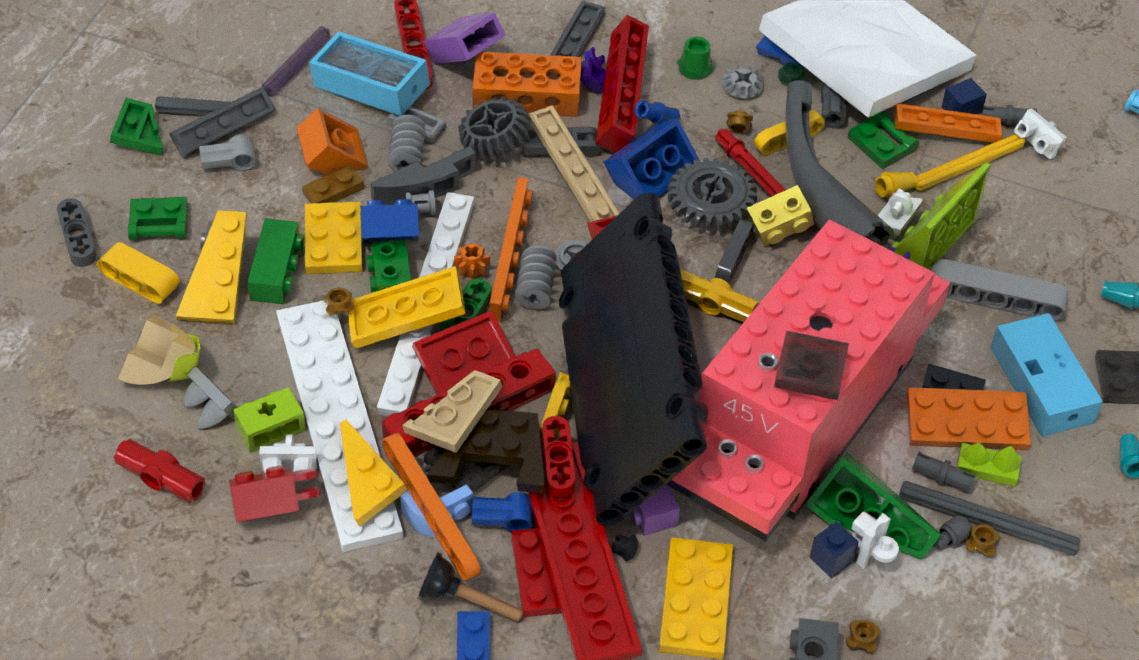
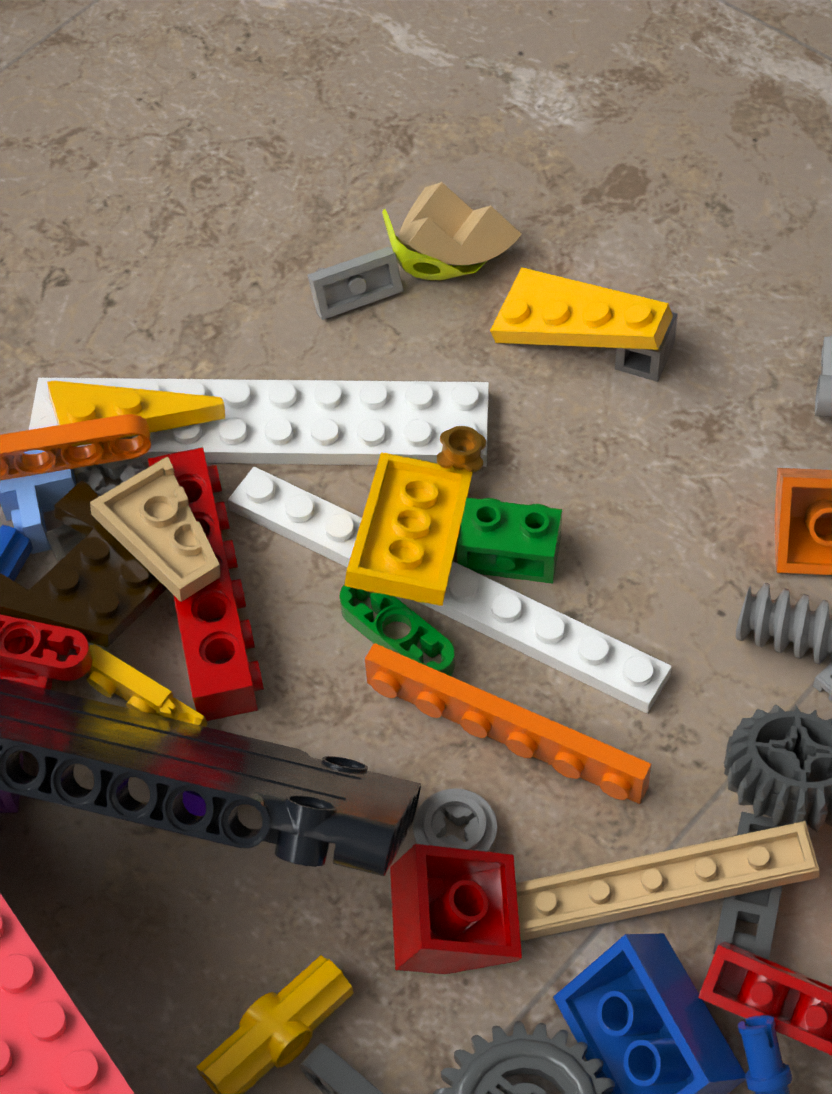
camera: 115 degrees right, 5 degrees up
(73, 242) = (700, 198): dark grey beam -> none
(138, 272) = (617, 236): yellow beam -> none
(158, 217) = (743, 283): green plate -> none
(159, 470) = (253, 210): red piece -> none
(269, 419) = (283, 333): lime brick -> none
(269, 492) = (147, 303): red hinge -> none
(274, 261) = (586, 395): green brick -> none
(289, 455) = (211, 343): white hips -> none
(333, 186) = (737, 512): pearl gold plate -> none
(333, 238) = (624, 489): yellow plate -> none
(389, 222) = (594, 543): blue slope -> none
(425, 202) = (653, 618): light grey bush -> none
(438, 176) = (704, 639): dark grey slope -> none
(462, 349) = (298, 596): red plate -> none
(472, 260) = (495, 659): orange gear -> none
(536, 277) = (416, 740): light grey piece -> none

